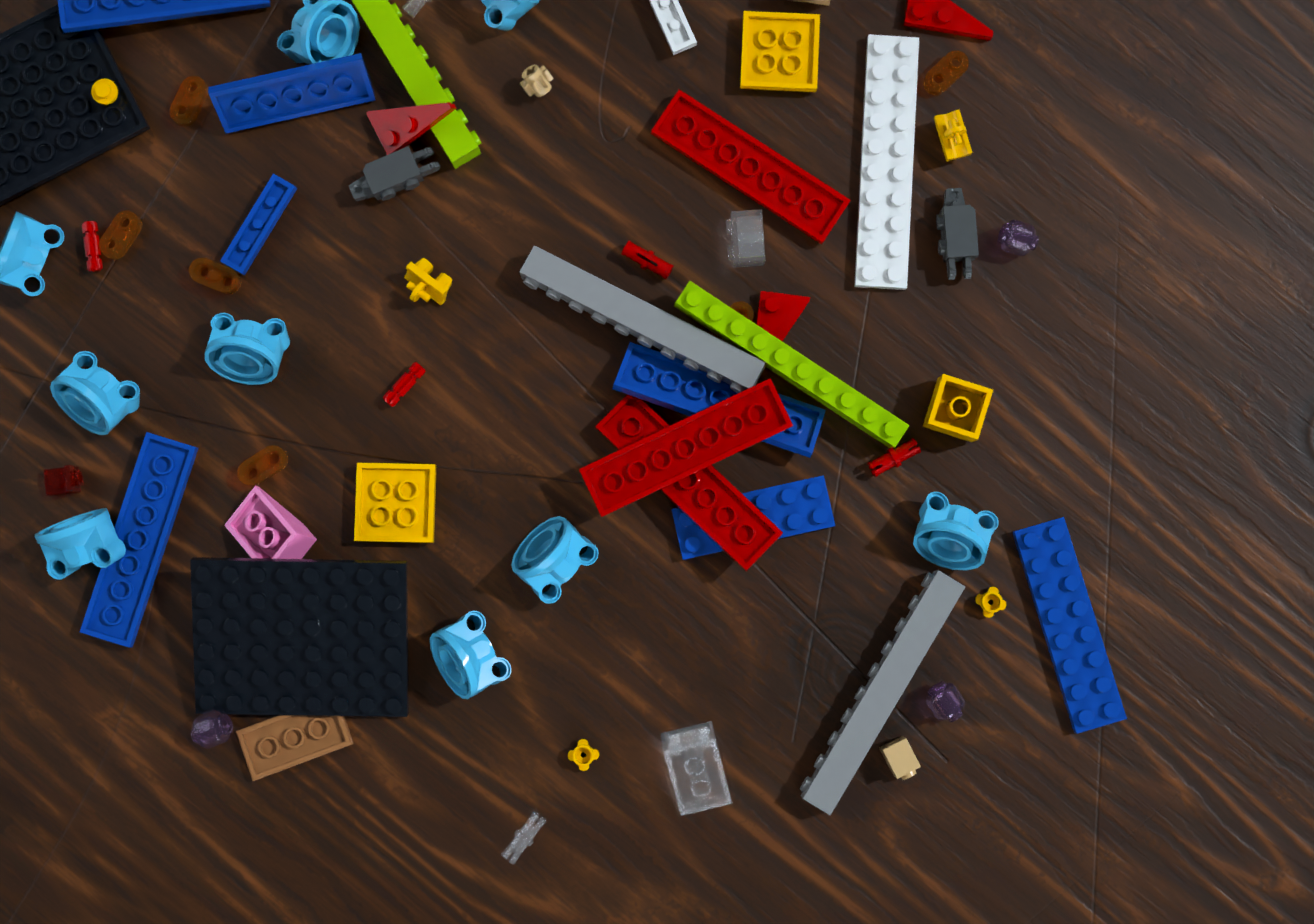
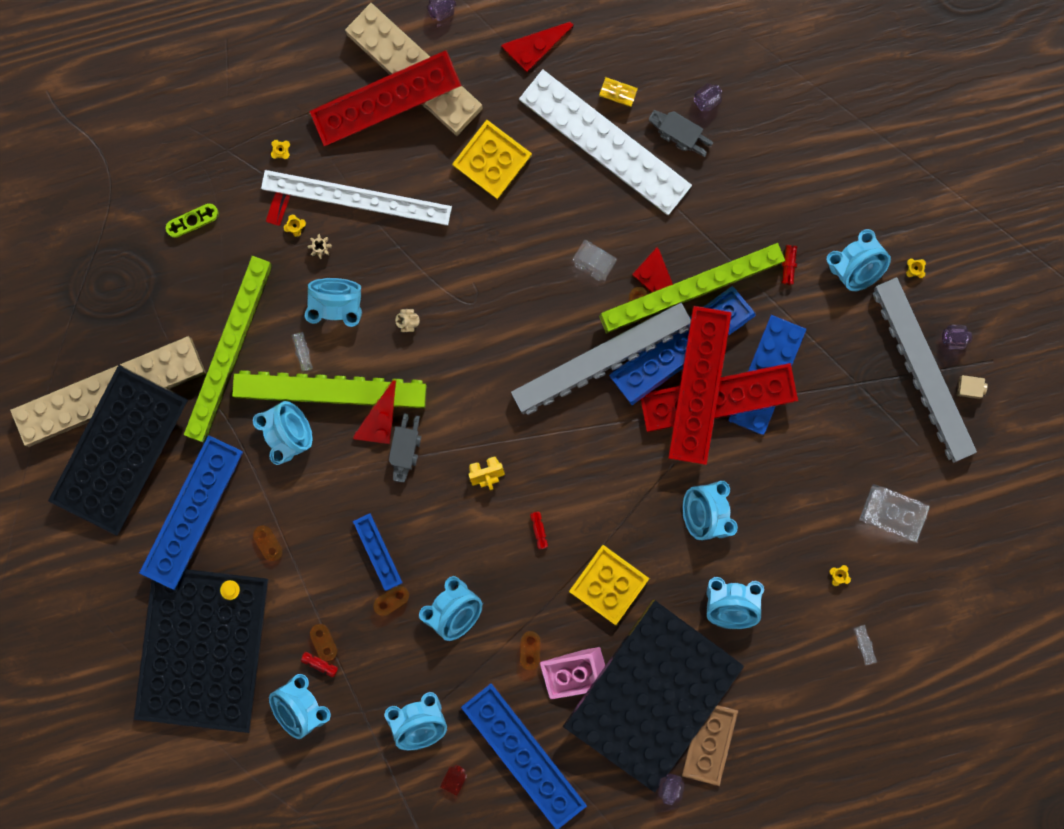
camera: 50 degrees left, 0 degrees up
(80, 541) = (502, 790): medium azure piece -> none
(292, 93) = (312, 474): blue plate -> none
(632, 250) = (577, 324): red pin -> none
(750, 166) = (551, 227): red plate -> none
(947, 72) = (574, 67): clear orange plate -> none
(957, 408) = (786, 206): yellow brick -> none
(1069, 625) = (961, 231): blue plate -> none

